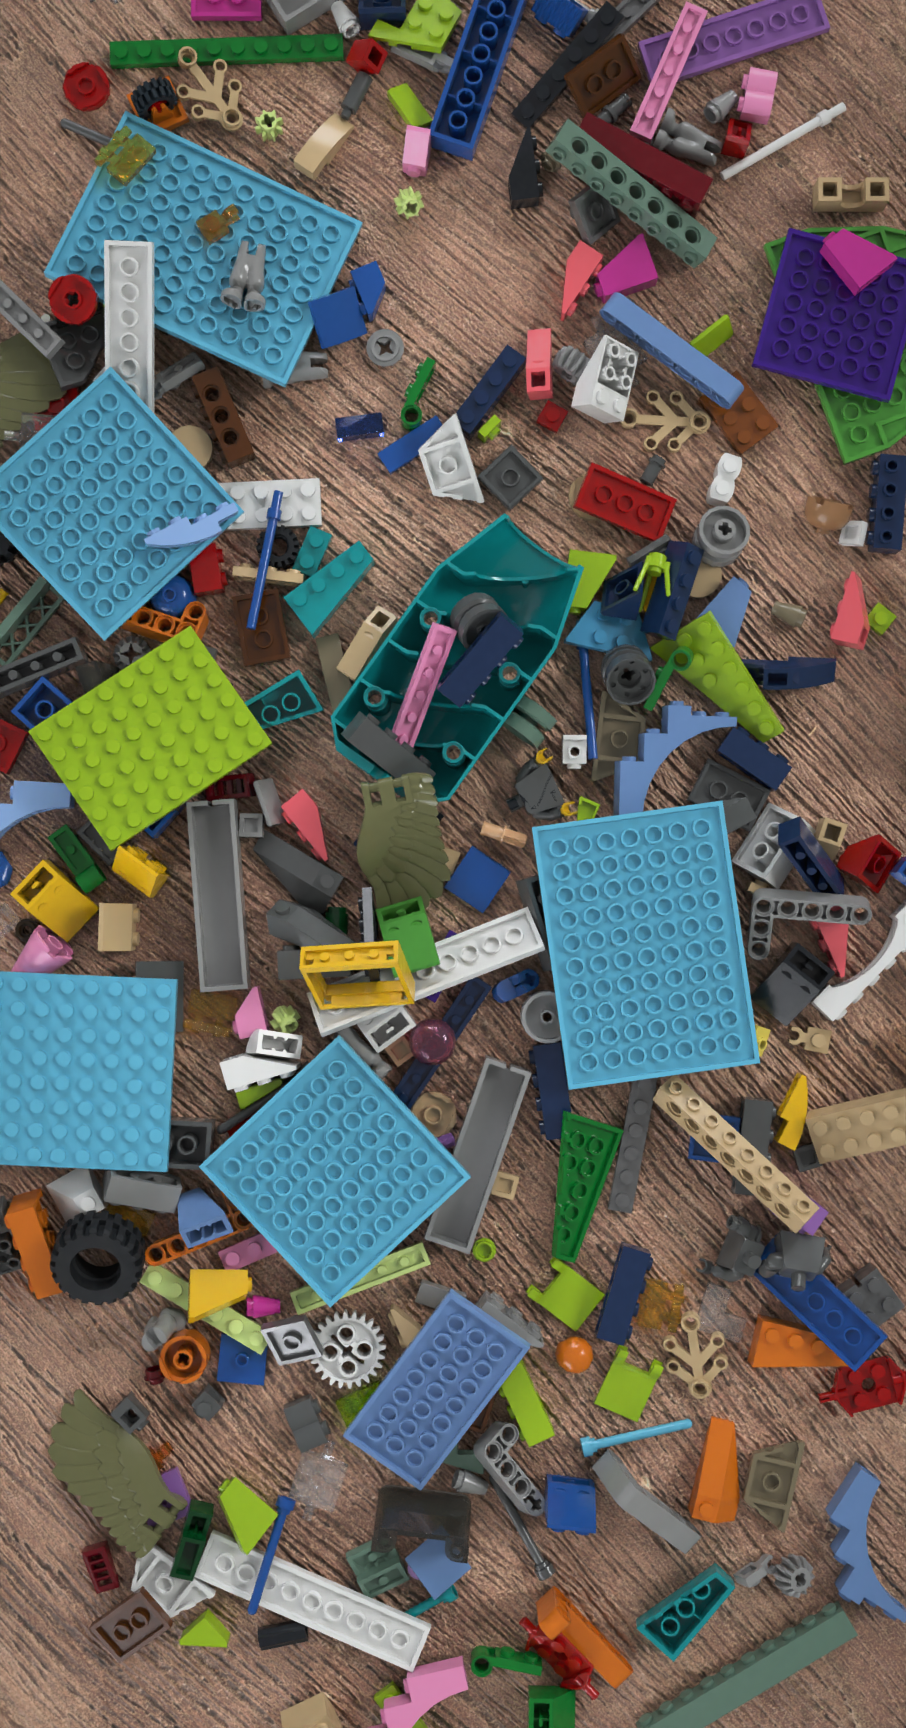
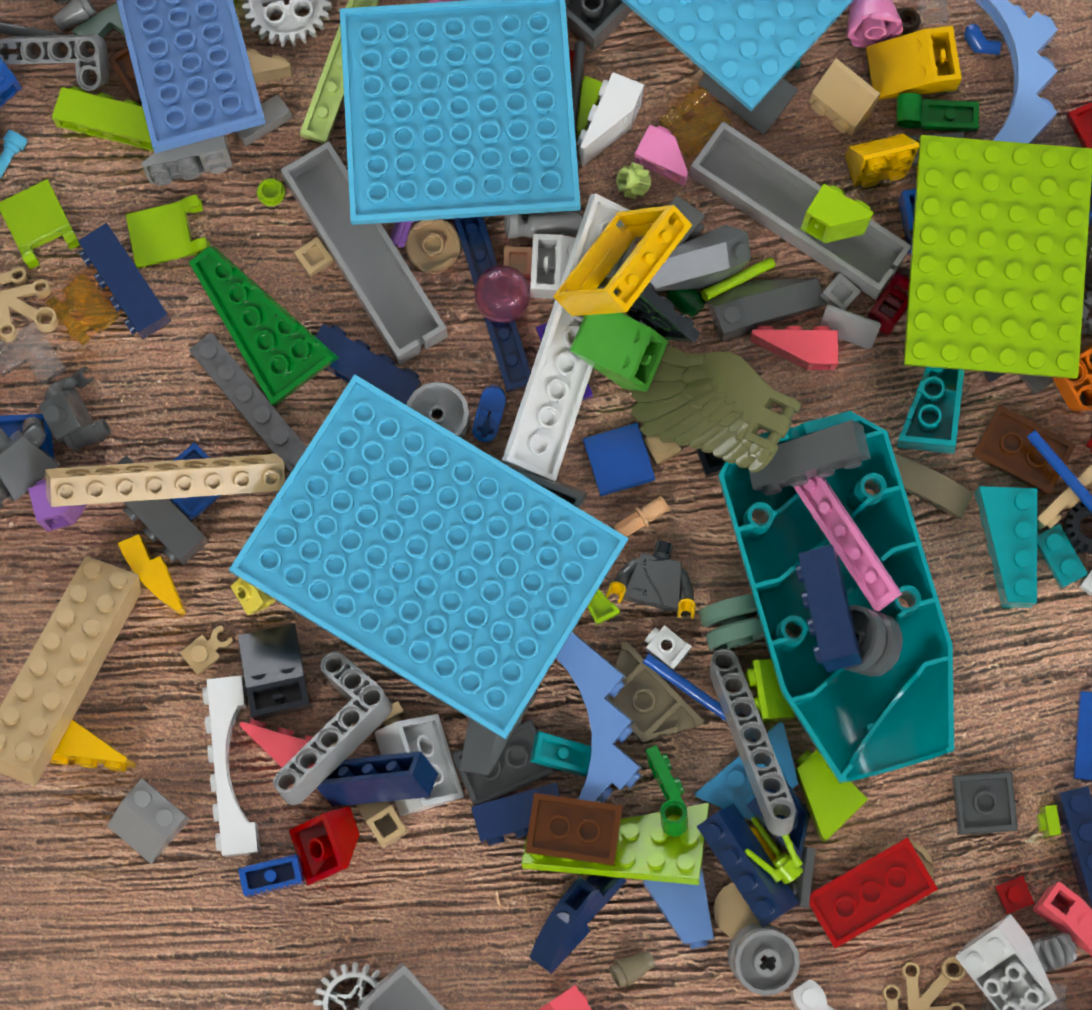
camera: 130 degrees right, 10 degrees down
(211, 866) = (835, 216): none -> lime slope
(275, 1044) = (618, 151): white brick -> none
(296, 898) = (737, 279): none -> lime bar
(367, 642) = (933, 532): tan slope -> none
(450, 463) = (1044, 753): white wing -> none
(561, 660) = (767, 693): none -> lime slope
(574, 1354) = (106, 196): orange hair -> none
(605, 641) = (752, 752): none -> light grey beam
(633, 685) = (700, 753): dark grey wheel -> none
(652, 470) = (882, 950): dark grey pin -> none
(696, 762) = (561, 754): none -> teal plate
(740, 713) = (574, 829): none -> reddish brown plate
(806, 1157) = (101, 550): dark grey plate -> none

